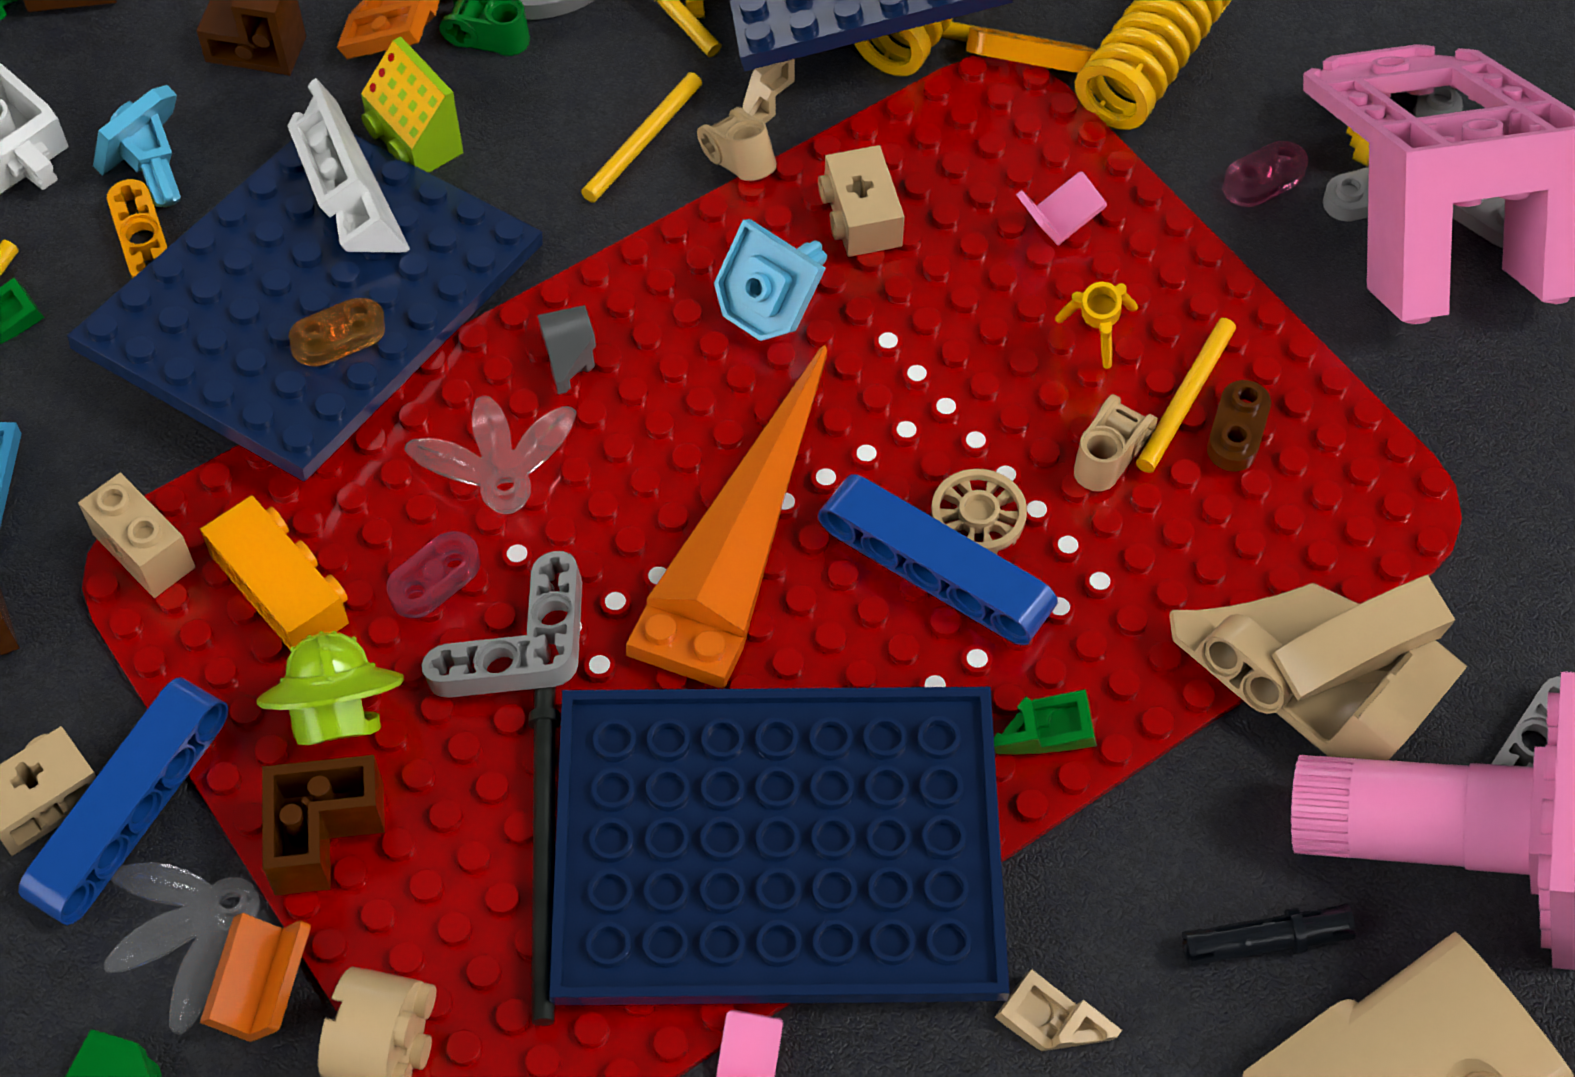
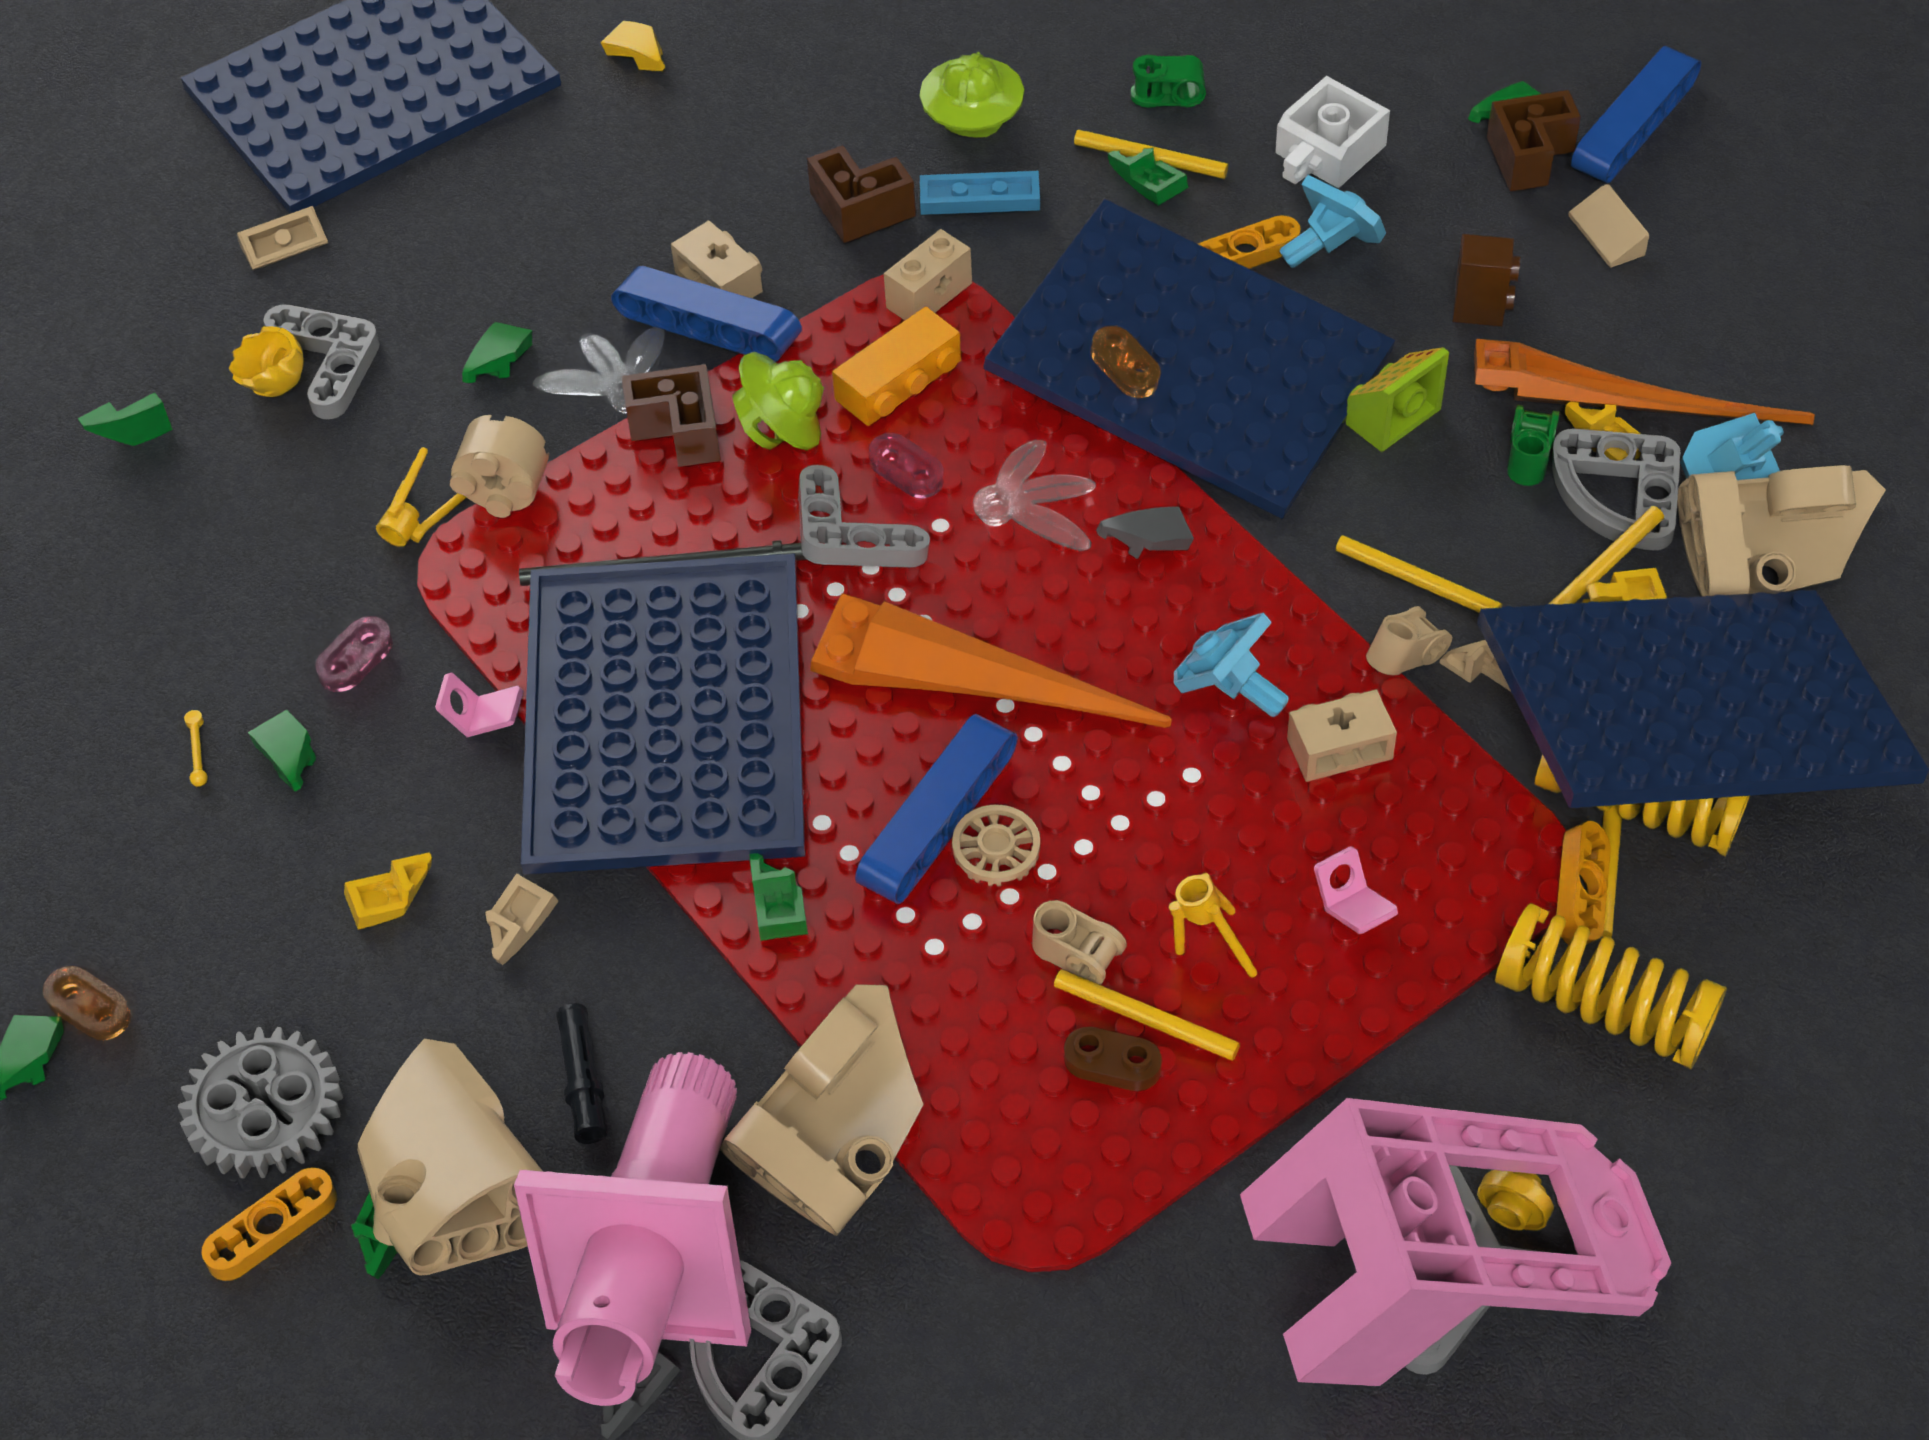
camera: 90 degrees right, 5 degrees down
(254, 977) = (565, 406): orange panel -> none
(343, 177) = (1306, 351): white wedge -> none
(1272, 172) = (1460, 1096): clear pink plate -> none
(1364, 638) = (837, 1115): tan slope -> none

